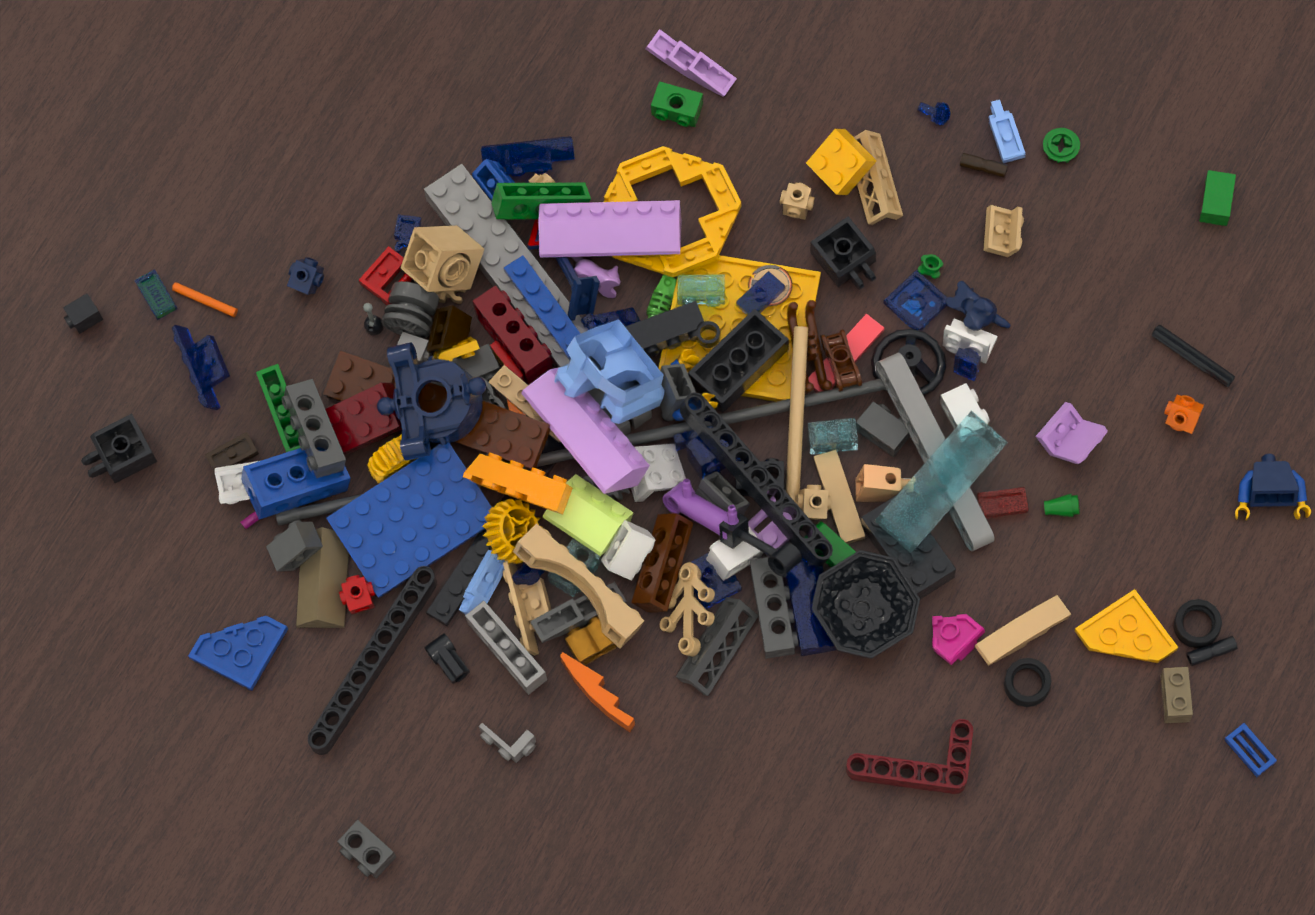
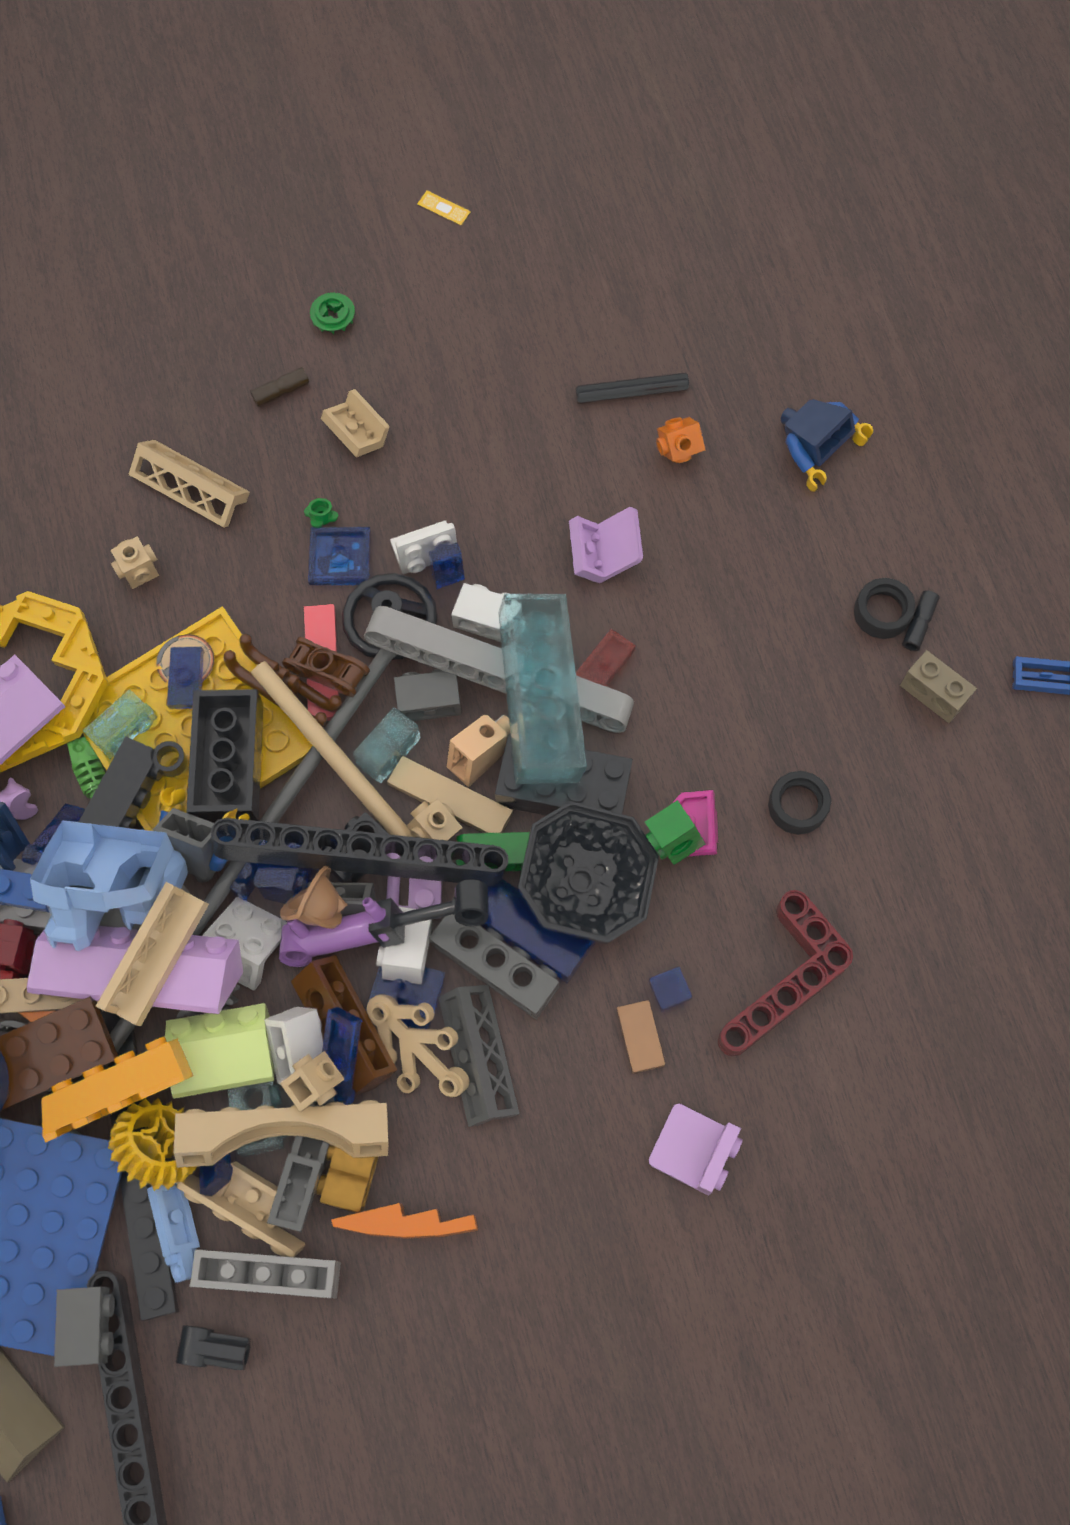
camera: 50 degrees left, 0 degrees up
(363, 600) = (33, 1387): red brick -> none
(399, 584) = (83, 1326): none -> dark grey brick
(521, 747) = (385, 1362): light grey bracket -> none
(600, 431) = (152, 954): none -> tan fence
(623, 572) = (312, 1081): none -> tan brick
(643, 574) = (341, 1046): none -> clear blue plate
(707, 485) = (316, 904): none -> medium nougat helmet
(778, 799) = (695, 1149): none -> lavender bracket
(810, 719) = (640, 1037): none -> medium nougat tile
(841, 161) = (142, 490): yellow brick -> none
(851, 710) = (670, 988): none -> clear blue plate
(856, 255) = (229, 569): black hinge -> none
(933, 628) = (673, 833): none -> green brick
(939, 114) = (194, 377): clear blue plate -> none
(978, 310) = (406, 510): dark blue animal -> none
(1005, 133) = (272, 343): light blue hinge -> none
(1022, 630) = (746, 759): tan slope -> none
(1063, 506) = (661, 614): green cone -> none
(1127, 631) = (834, 671): yellow plate -> none
(1201, 134) = (444, 207): none -> yellow sticker
(1217, 198) = (516, 239): green panel -> none

